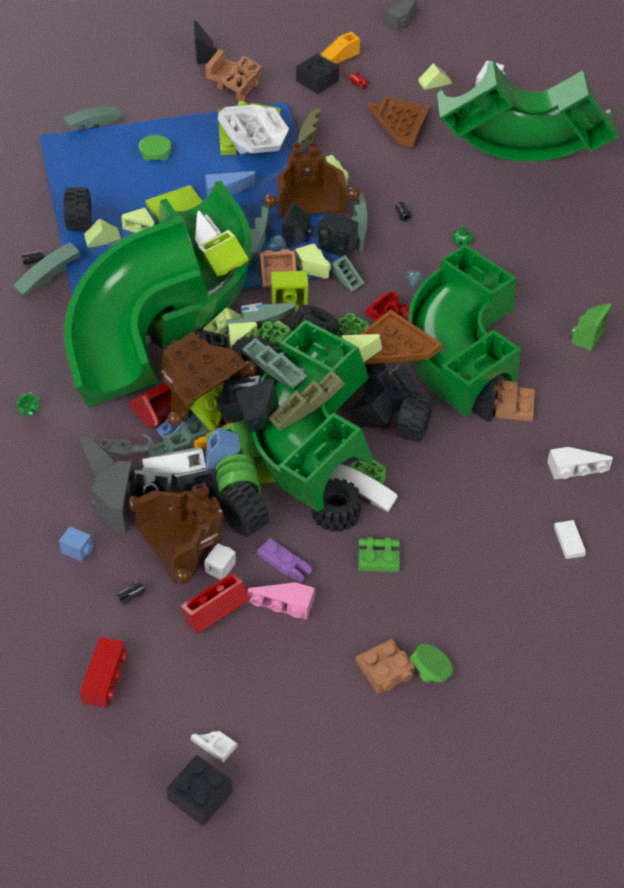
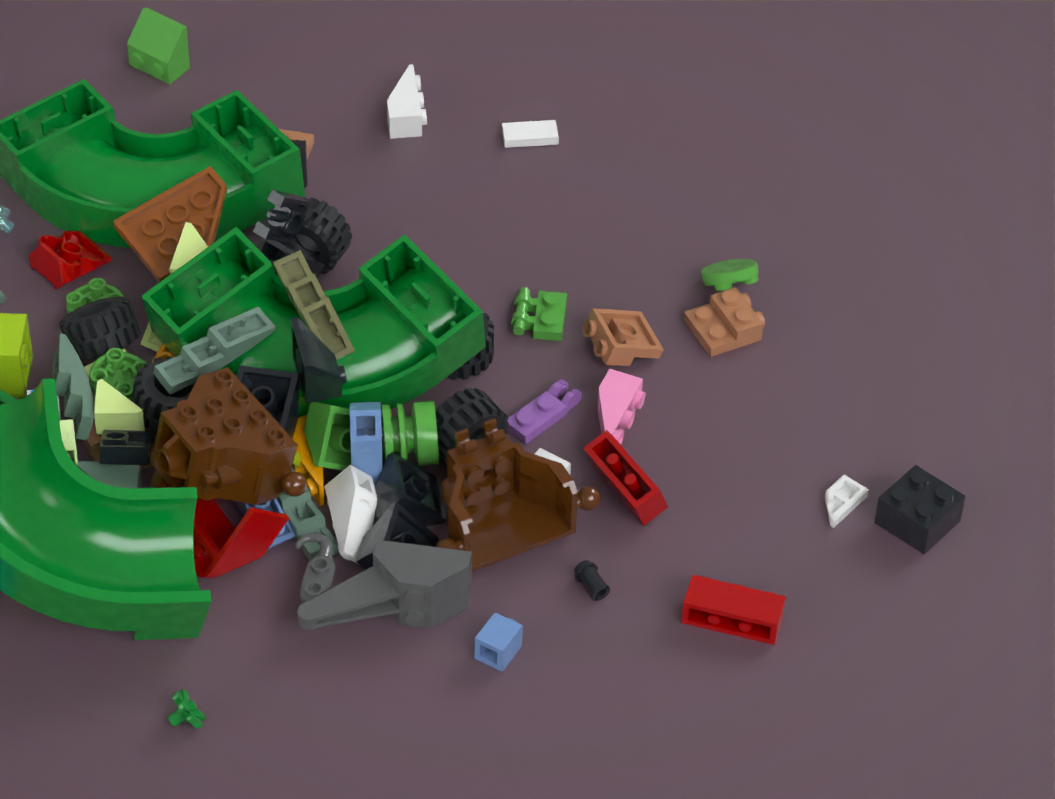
camera: 85 degrees left, 5 degrees down
(357, 599) = (621, 336): none -> nougat plate

